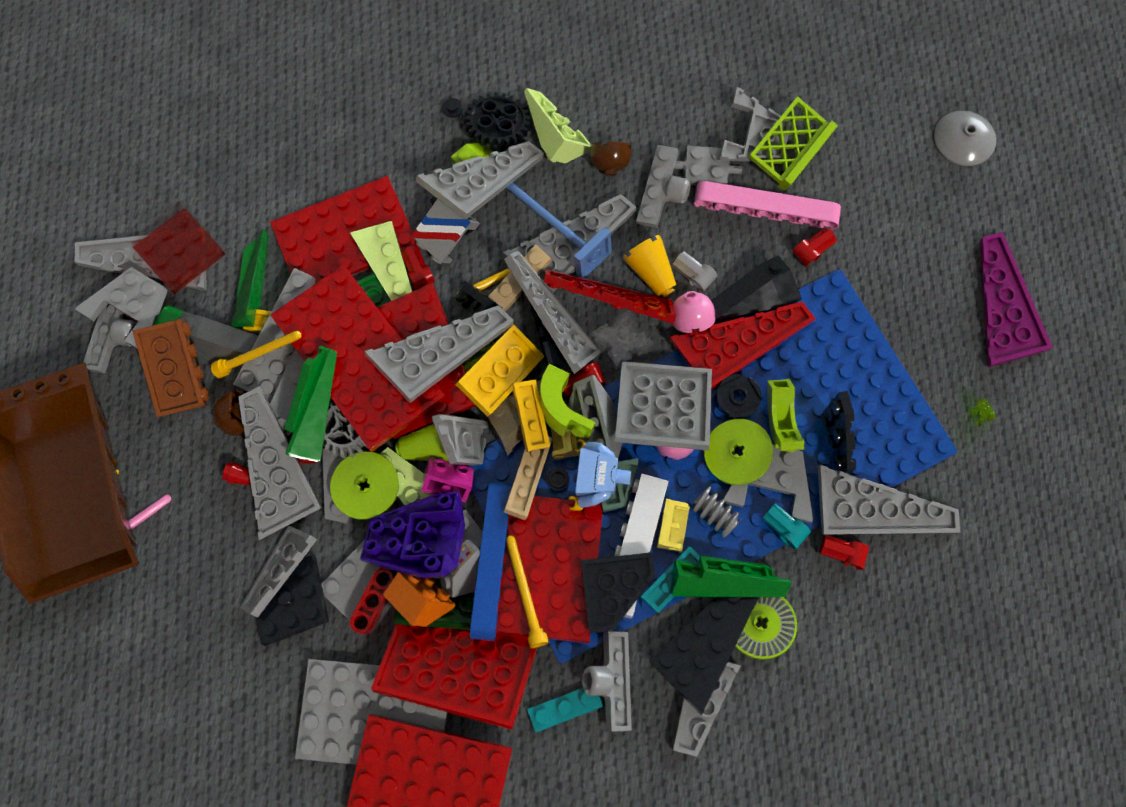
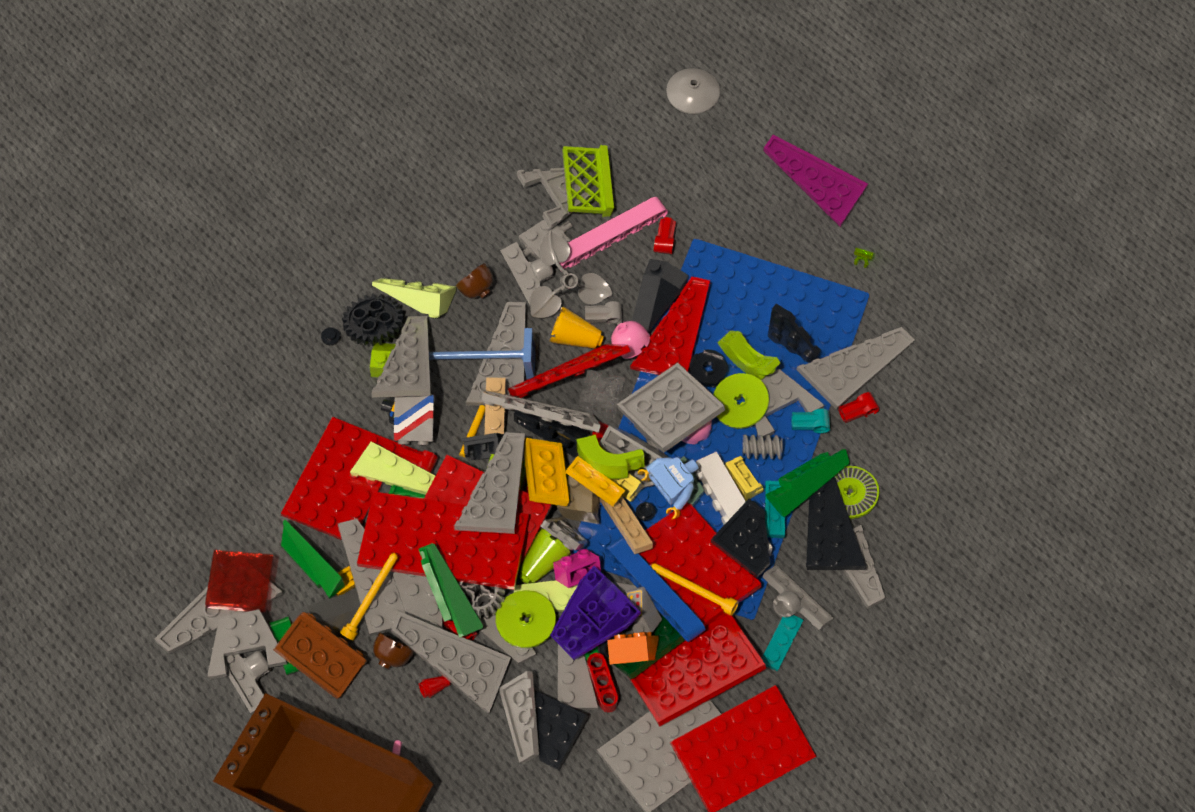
camera: 45 degrees left, 10 degrees down
(651, 219) = (544, 301): none -> light grey plant

